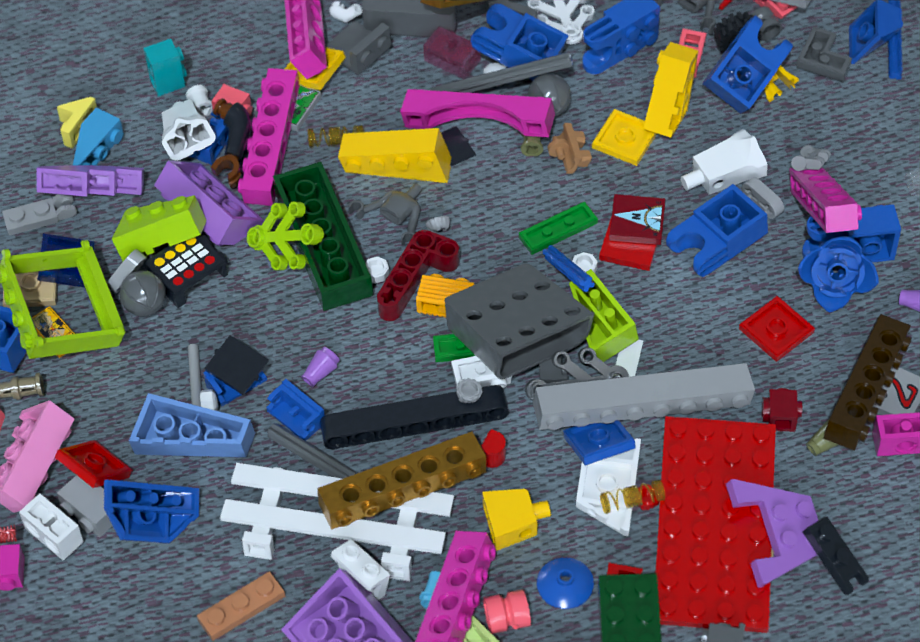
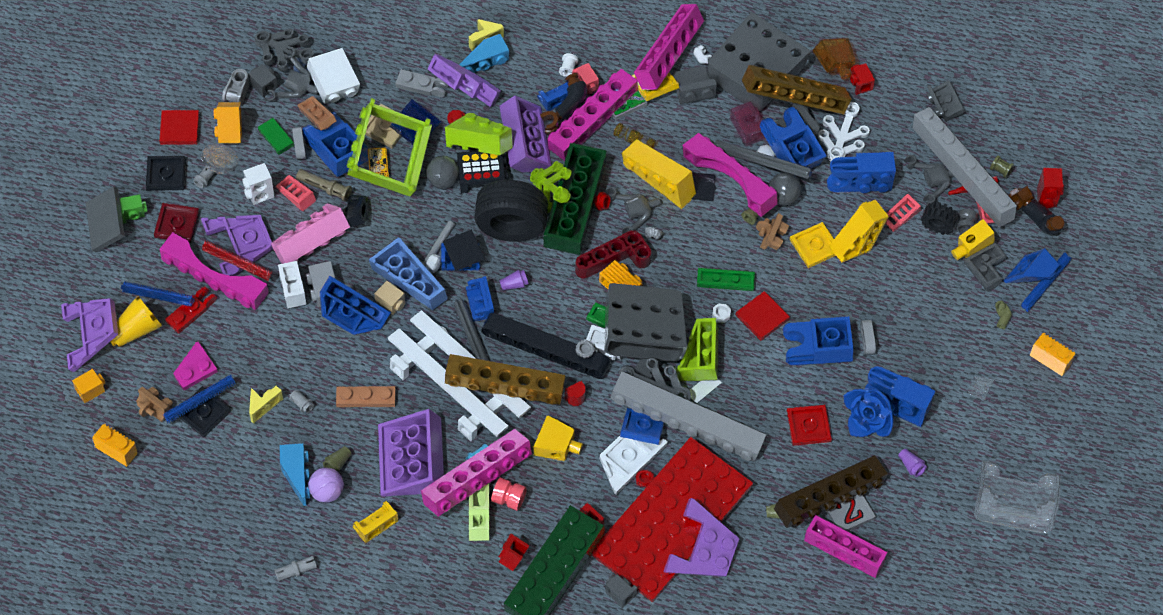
camera: 30 degrees right, 5 degrees up
(67, 395) = (356, 210): none -> black piece
(93, 463) = (341, 261): red tile -> none
(107, 227) = (454, 115): none -> red plate
(128, 266) = (445, 150): light grey beam -> none
(165, 66) = (561, 30): teal brick -> none
(185, 130) = (541, 80): white piece -> none
(186, 470) = (390, 297): none -> tan brick
(264, 285) = (511, 210): none -> black tyre
(355, 221) = (602, 201): none -> red plate
(362, 568) = (444, 417): white bracket -> none
(378, 269) = (593, 239): white tile -> none
(565, 593) = (555, 506): blue dish -> none
(568, 268) = (703, 309): blue axle -> none
(632, 496) = (631, 472): clear yellow piece -> none
(637, 219) = (776, 303): dark red tile -> none
(727, 164) = (861, 301): white piece -> none
(749, 60) = (929, 244): blue brick -> none
(782, 409) = (767, 476): dark red brick -> none
(787, 78) = (935, 264): yellow piece -> none
(802, 21) = (974, 240): none -> yellow torso
(810, 158) = (916, 332): light grey piece -> none
(825, 200) = (892, 360): dark pink brick -> none
(835, 555) = (725, 581): black hinge -> none
(880, 93) = (1004, 314): none -> olive arm

